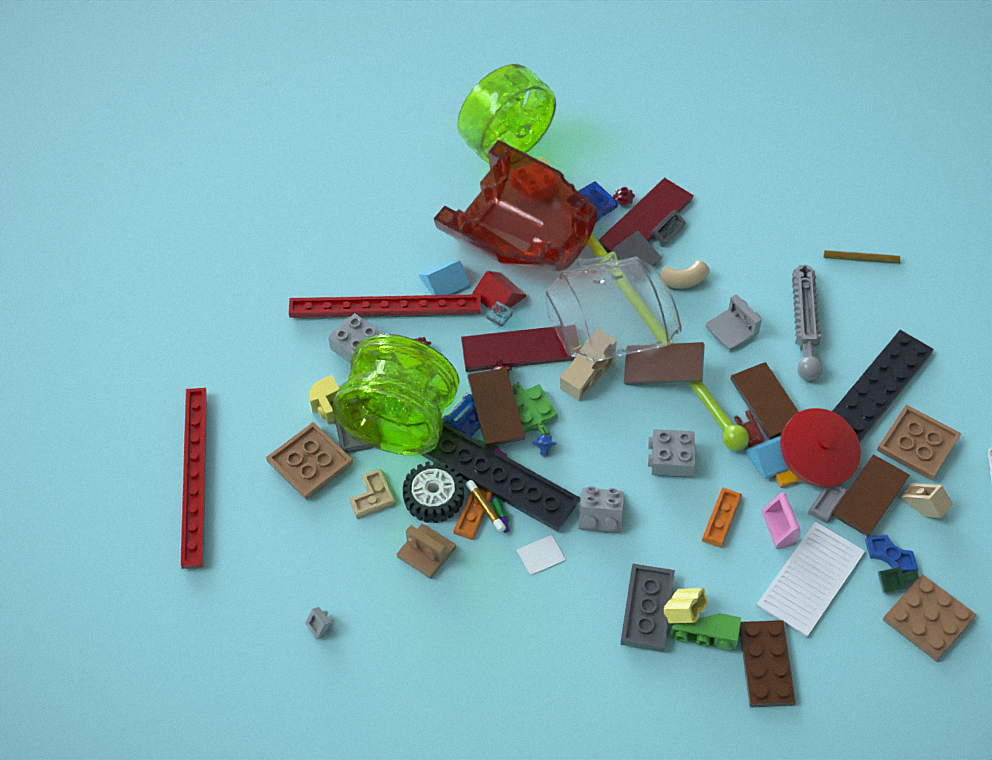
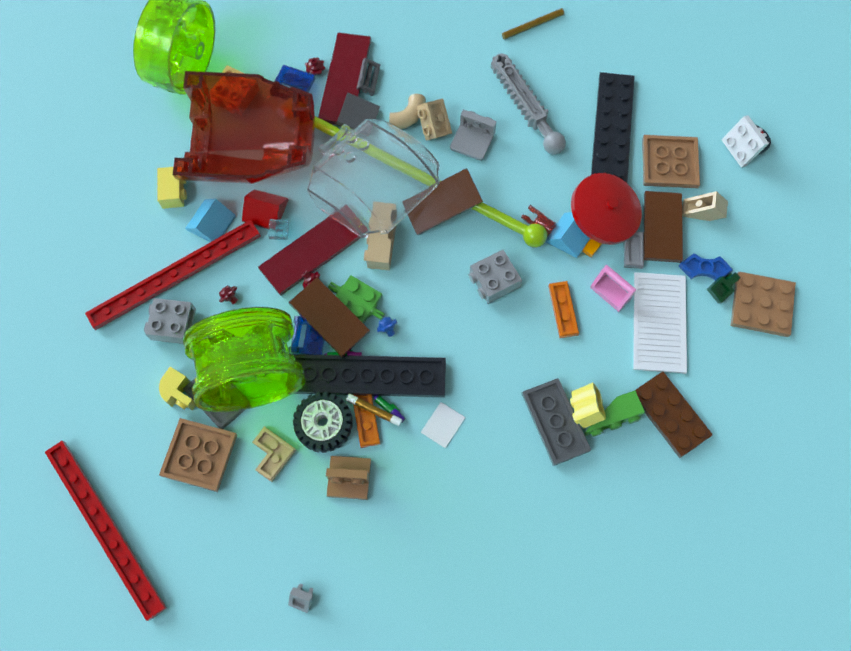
camera: 30 degrees left, 15 degrees up
(426, 236) = (170, 190): none -> light yellow brick
(601, 509) = (468, 357): light grey bracket -> none
(705, 291) = (434, 119): none -> tan bracket
(765, 398) = (537, 188): reddish brown tile -> none

